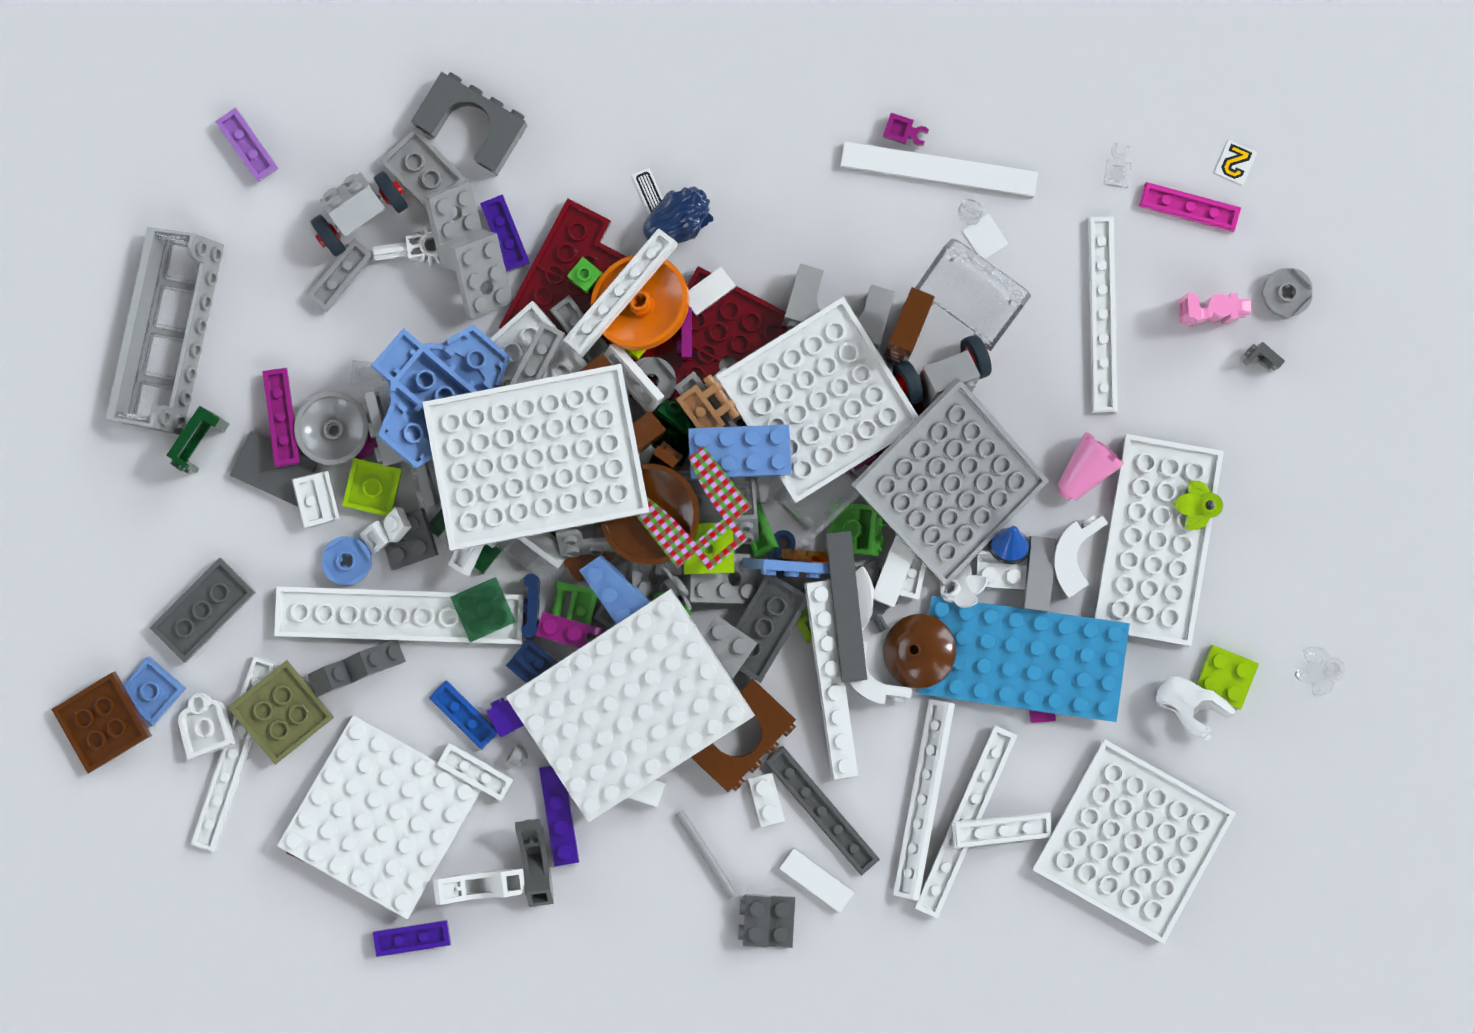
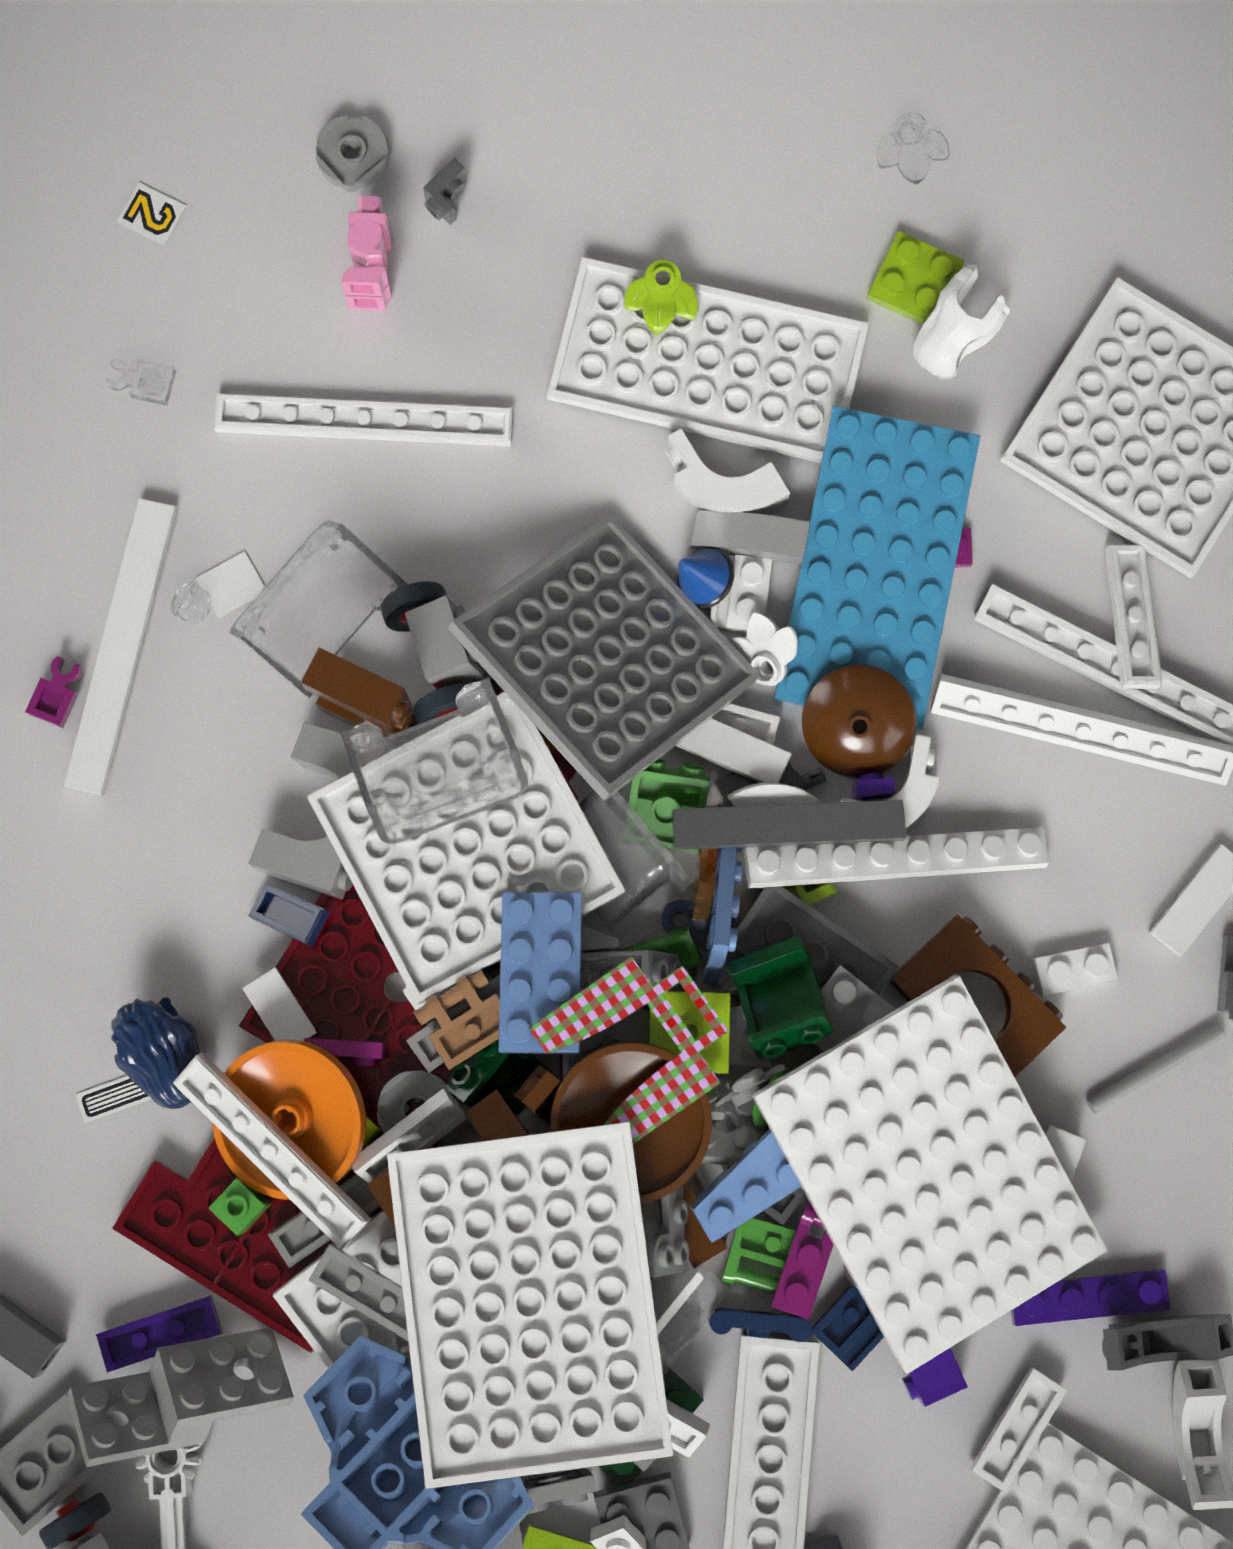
camera: 95 degrees left, 5 degrees down
(463, 714) = (925, 1444): blue tile -> none
(483, 609) = (762, 1403): clear green plate -> none
(516, 754) = (993, 1361): light grey hinge -> none
(734, 605) = (780, 998): none -> dark green panel
(770, 292) = (289, 914): none -> tile
(822, 810) = (1093, 885): dark grey tile -> none
(866, 377) = (437, 767): none -> clear windscreen
(877, 662) = (873, 787): none -> dark purple plate
(1087, 468) = (595, 454): bright pink cone -> none
(1189, 207) = (212, 283): dark pink tile -> none

